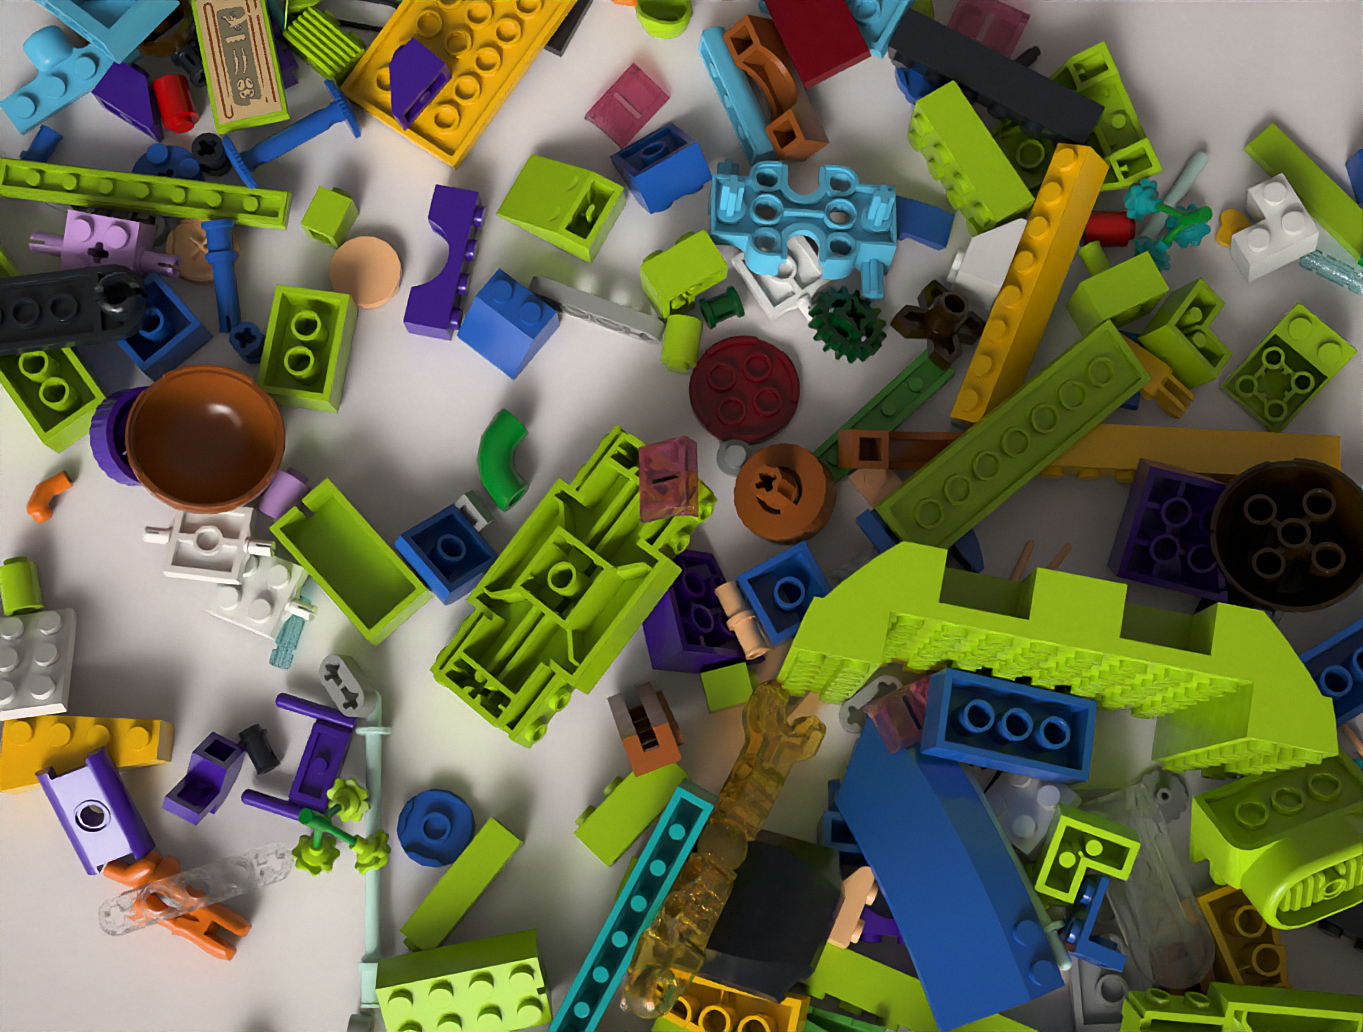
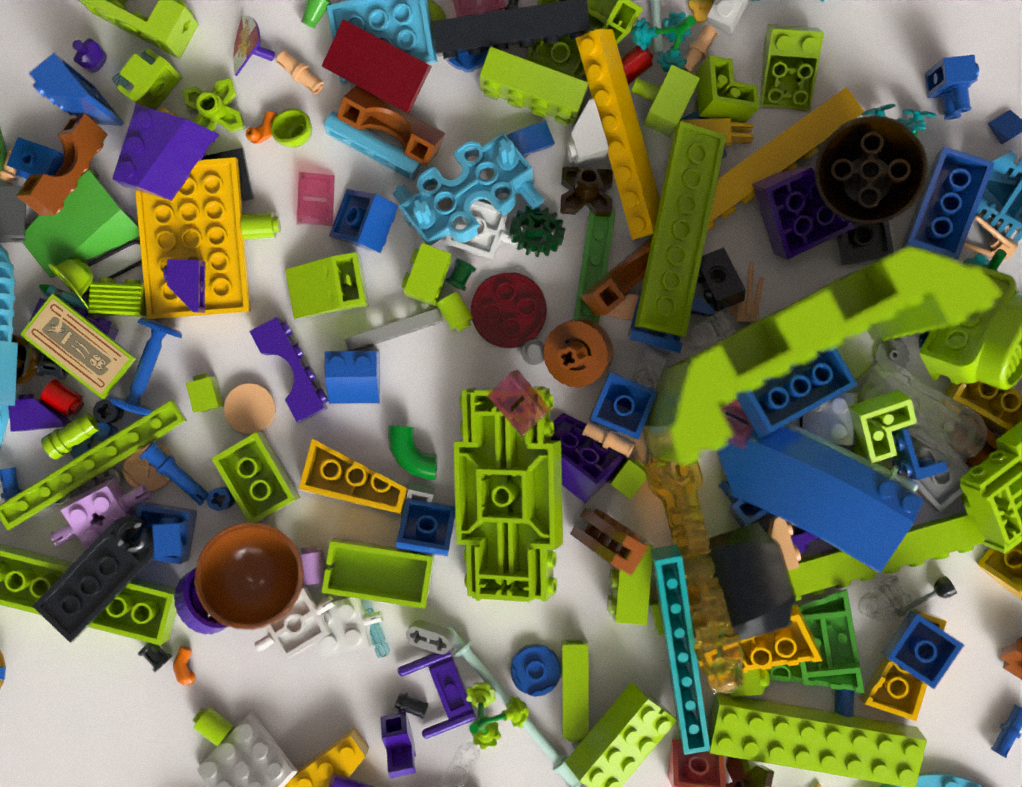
camera: 45 degrees left, 10 degrees up
(27, 456) = (155, 655): none -> black bush
(152, 145) = (72, 434): none -> lime axle
(157, 330) = (170, 537): none -> blue brick
(402, 428) = (344, 479): none -> yellow wedge
(542, 86) = (260, 225): none -> lime brick
(1028, 524) = (723, 294): none -> black brick
(1197, 267) = (698, 49): none -> light nougat pin

